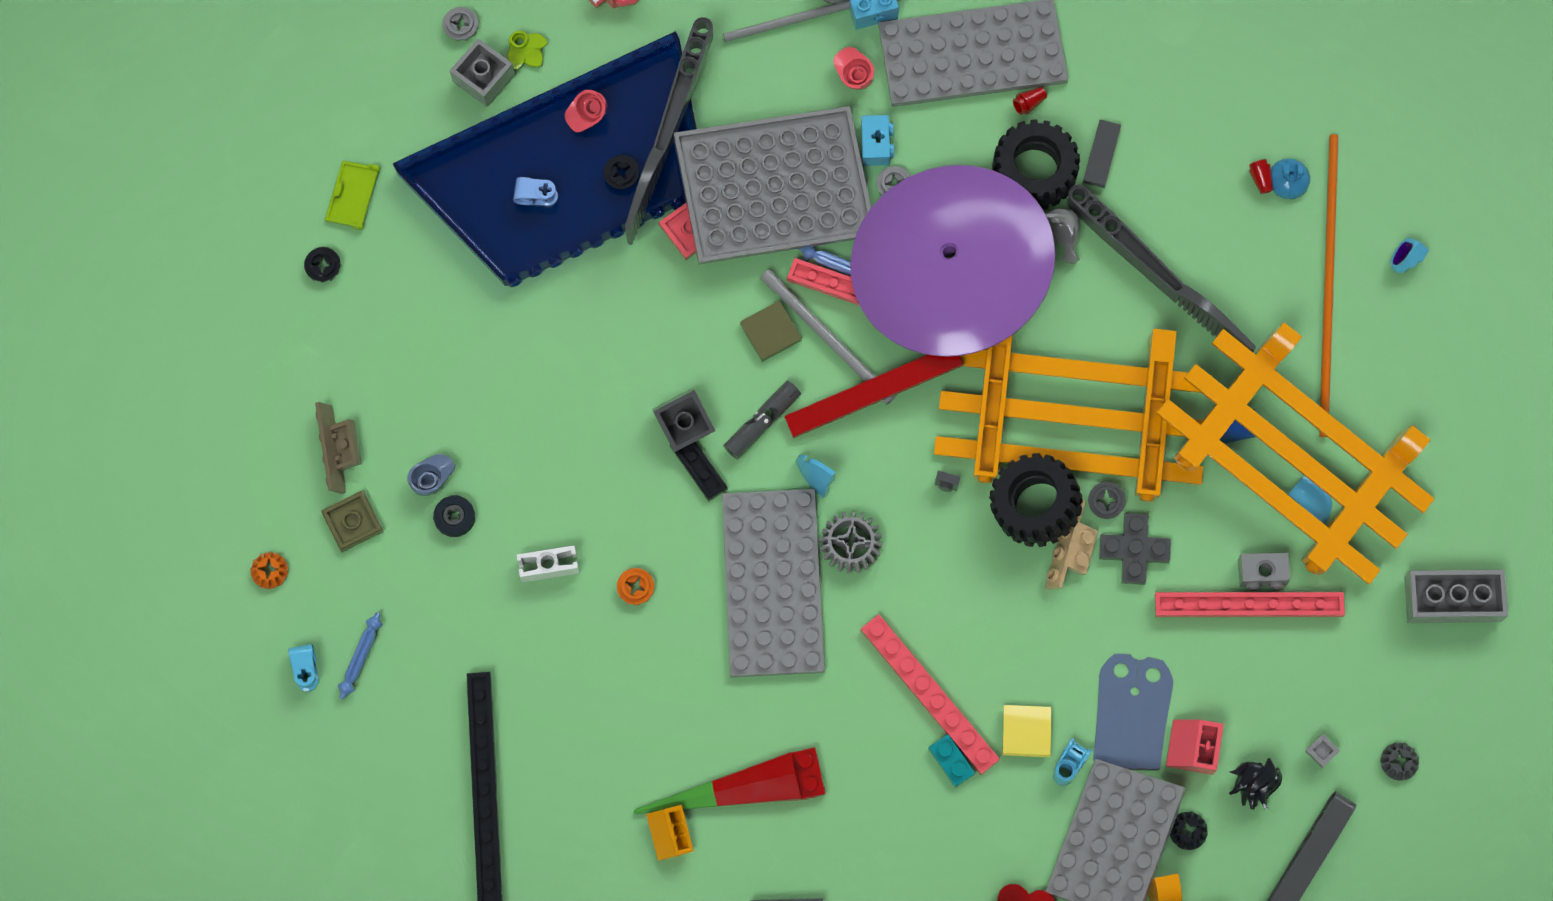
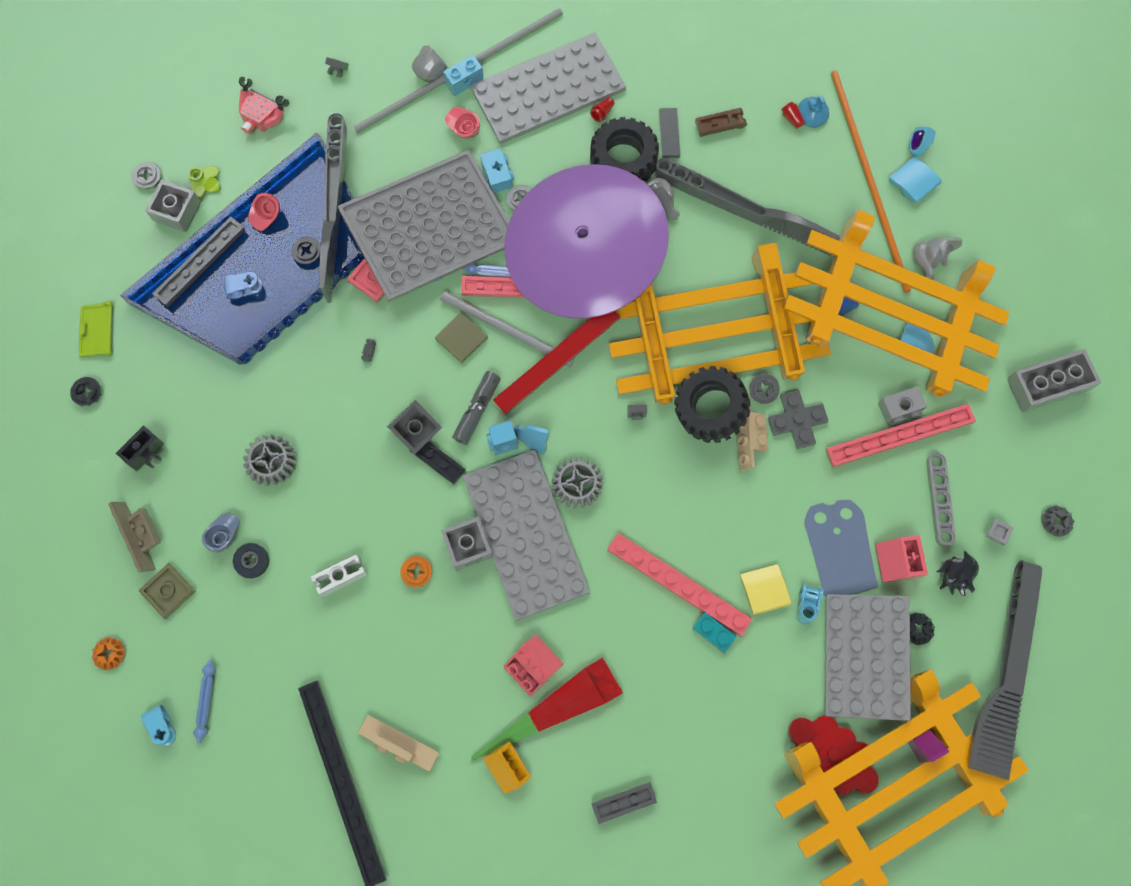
camera: 20 degrees left, 0 degrees up
(368, 351) = (140, 449): none -> black brick
(486, 406) = (264, 445): none -> light grey gear
(493, 149) = (198, 262): none -> plate
(561, 771) = (398, 743): none -> tan bracket
(658, 313) = (368, 350): none -> dark grey piece
(702, 572) = (467, 544): none -> light grey brick
(734, 731) = (533, 665): none -> coral slope
(779, 464) = (502, 438): none -> medium azure brick
(1169, 158) = (720, 122): none -> reddish brown plate
(1267, 704) = (937, 508): none -> light grey beam
(1367, 399) = (931, 253): none -> light grey piece
(1383, 302) = (915, 179): none -> medium azure slope

